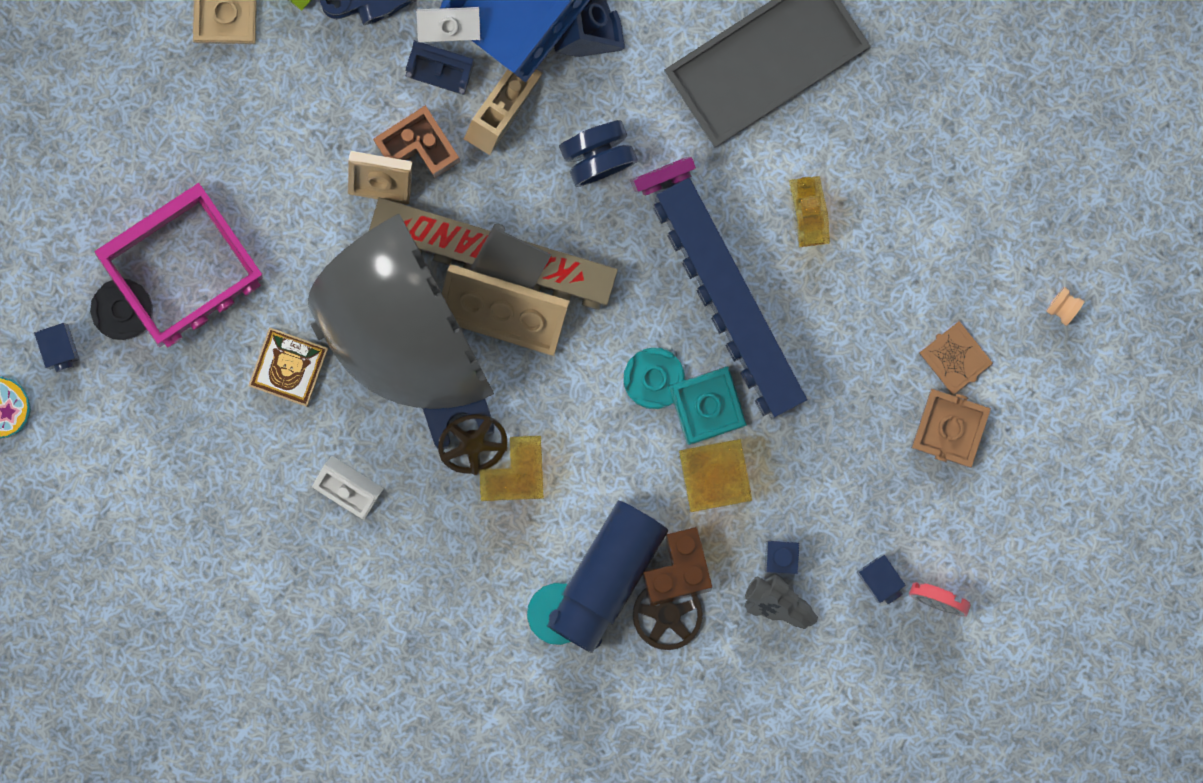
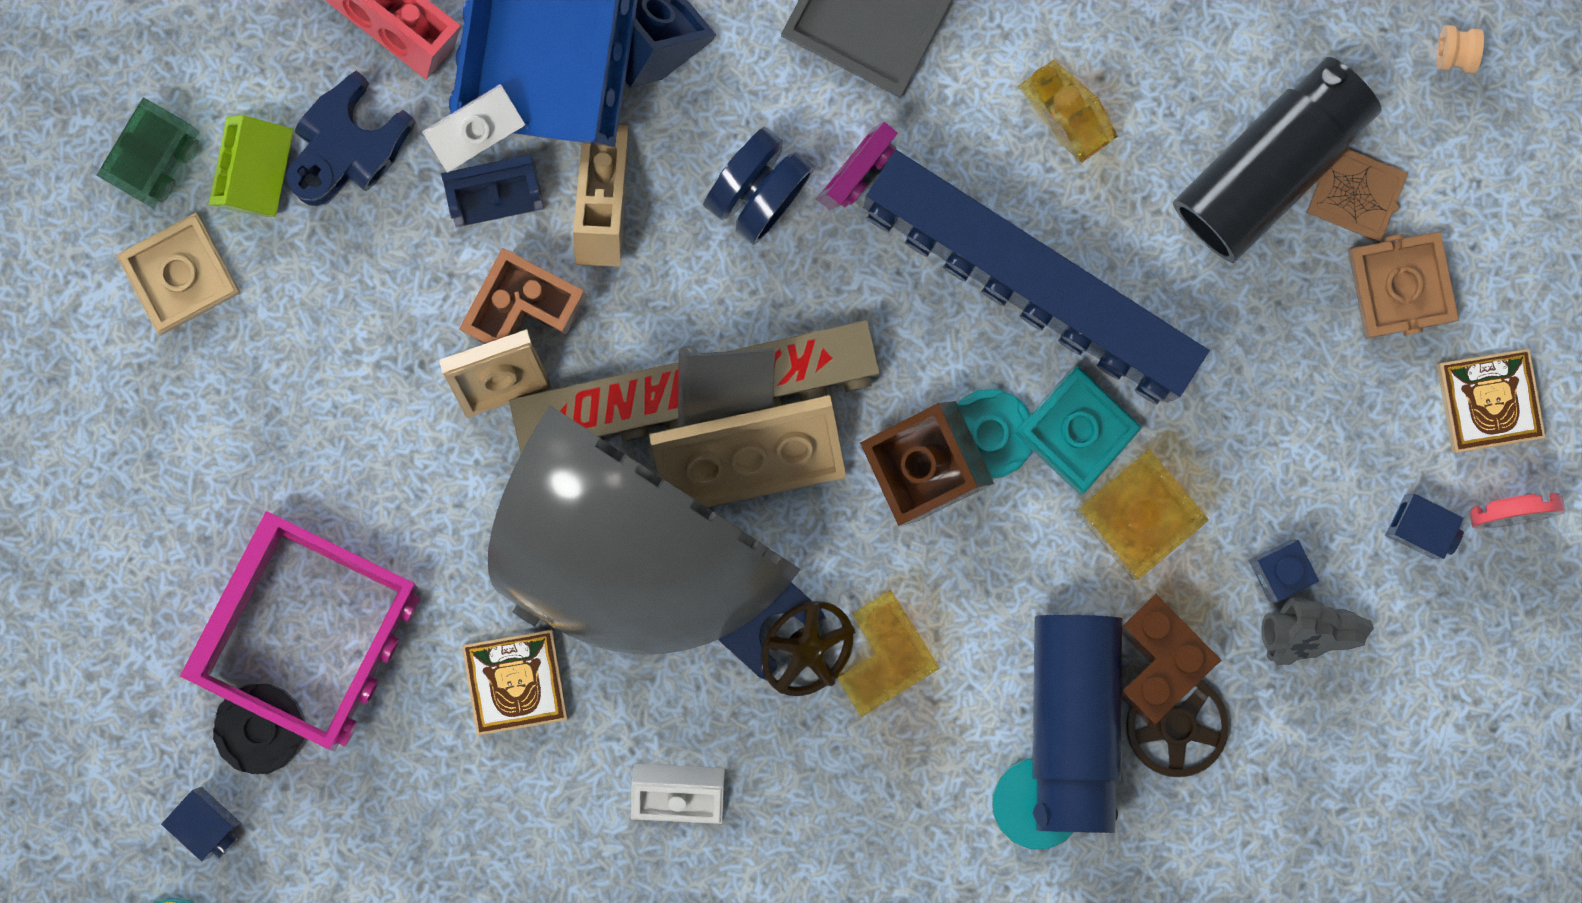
camera: 30 degrees left, 0 degrees up
(605, 373) = (927, 463): none -> reddish brown brick
(916, 310) = (1277, 159): none -> black piece
(965, 527) = (1490, 401): none -> tile

